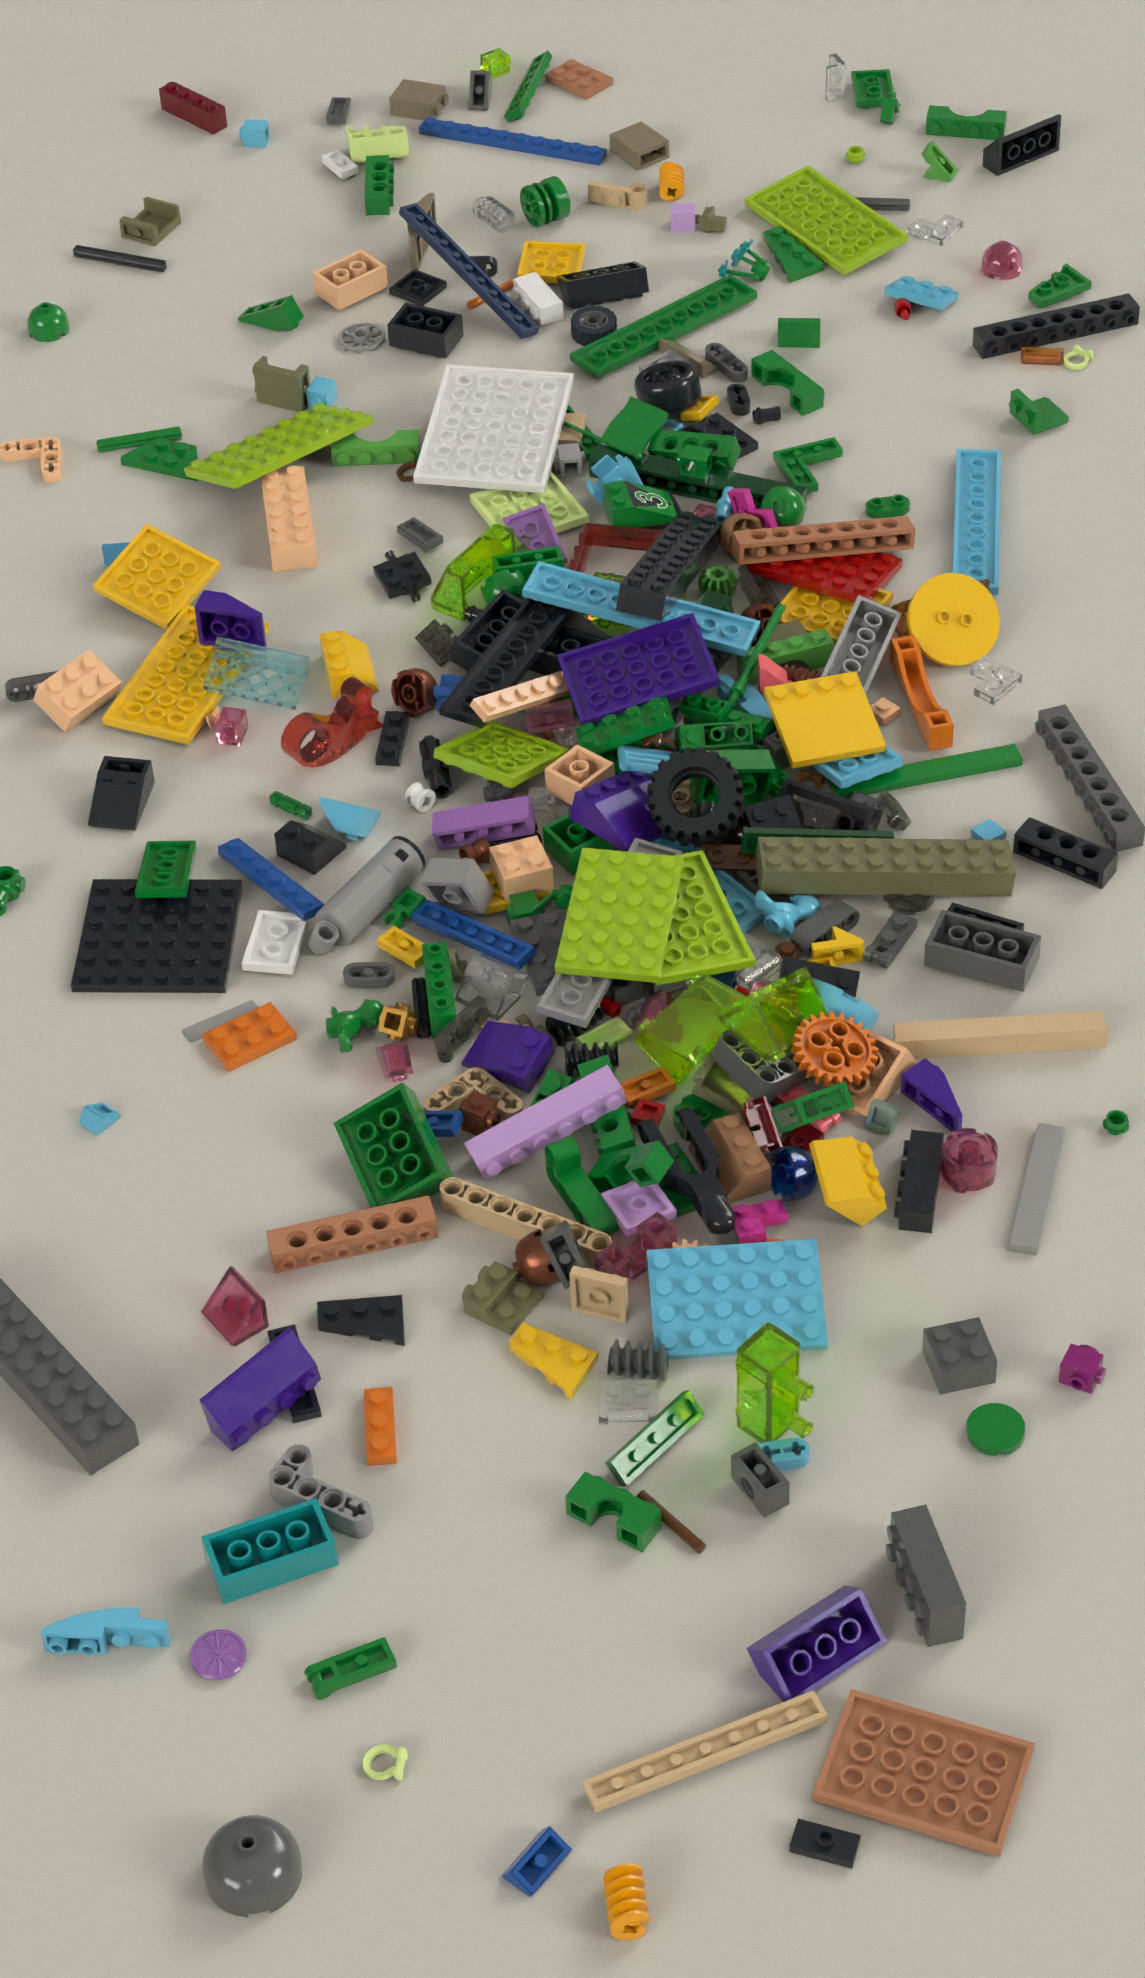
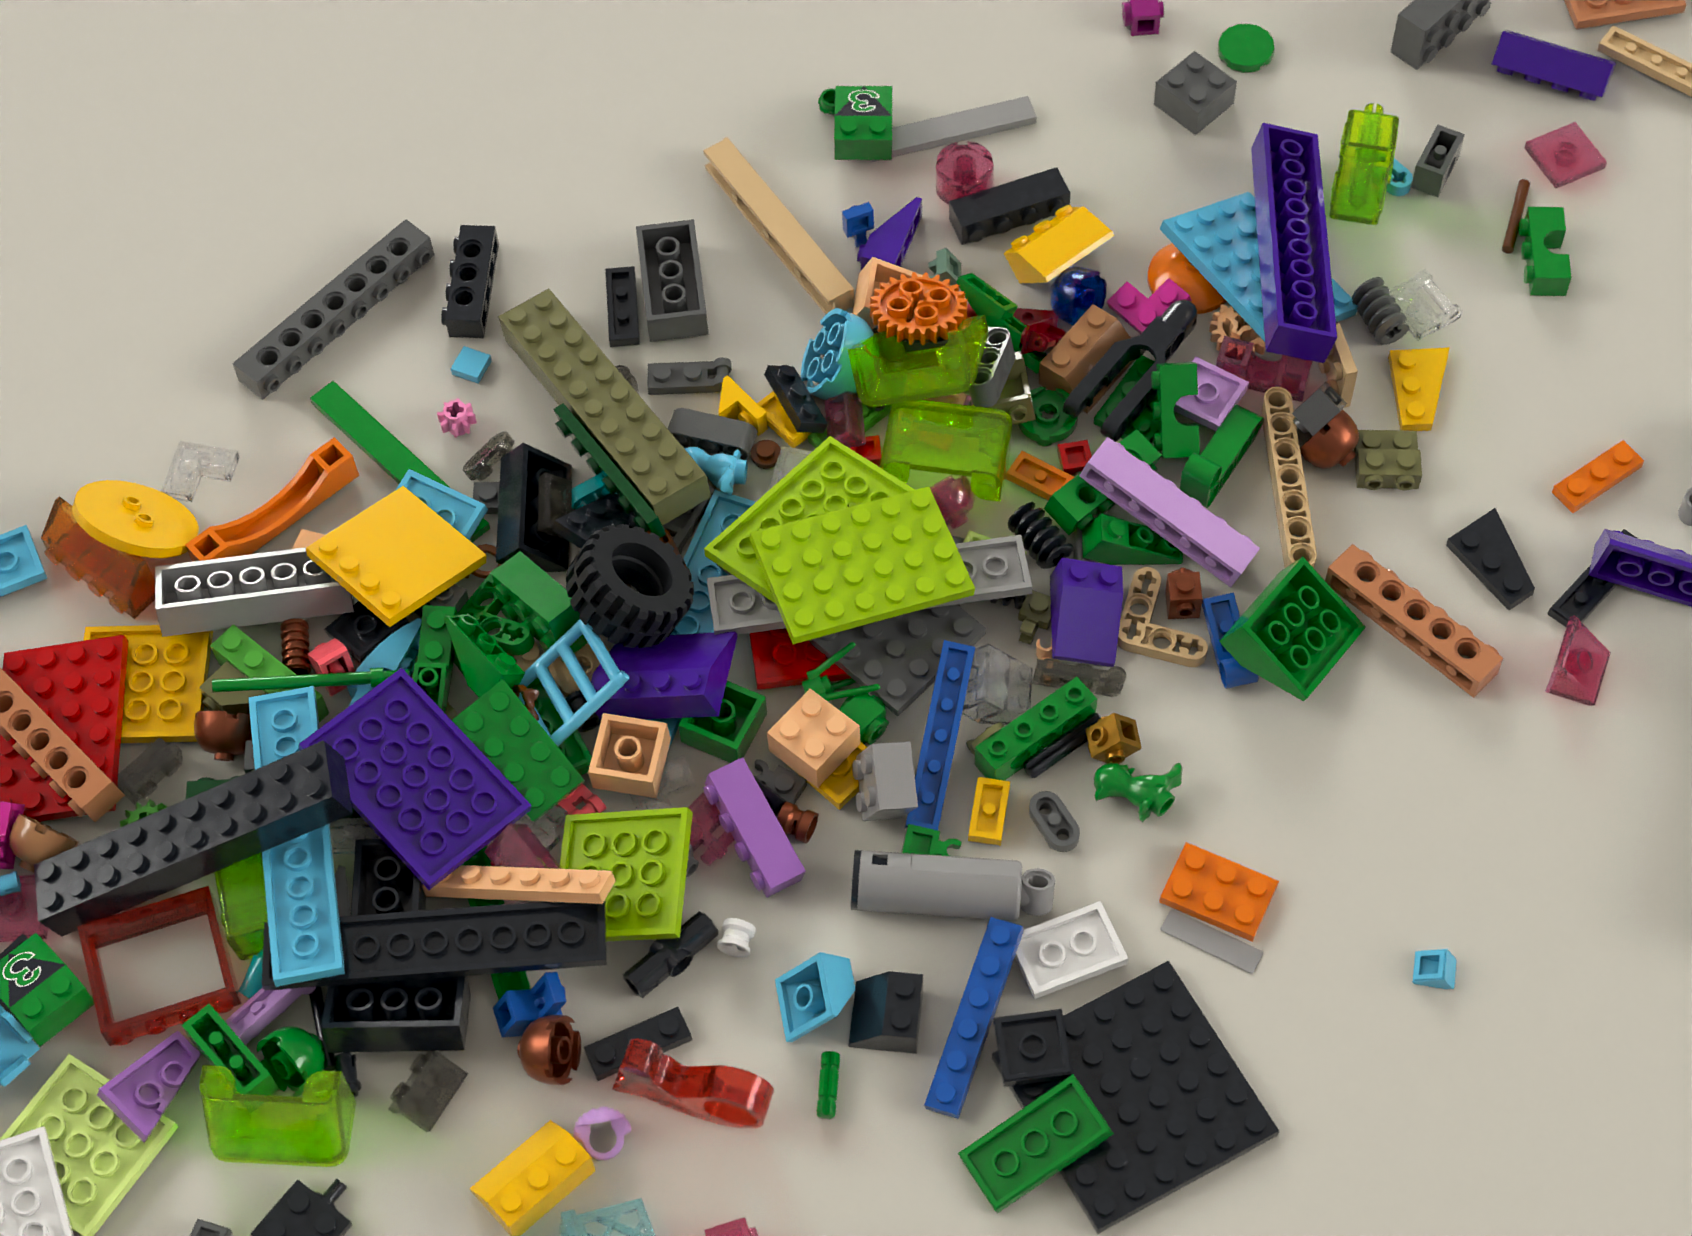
camera: 120 degrees left, 15 degrees up
(222, 886) = (1032, 1047): none -> black plate
(395, 1060) = (1162, 718): clear pink slope -> none
(654, 1438) = (1460, 263): plate -> none
(707, 1592) = (1565, 155): none -> clear pink plate
(728, 1301) = (1293, 244): none -> dark purple brick
(939, 805) = (456, 417): none -> bright pink gear
(961, 1070) = (857, 221): none -> blue plate
(1070, 1118) = (863, 123): none -> green slope

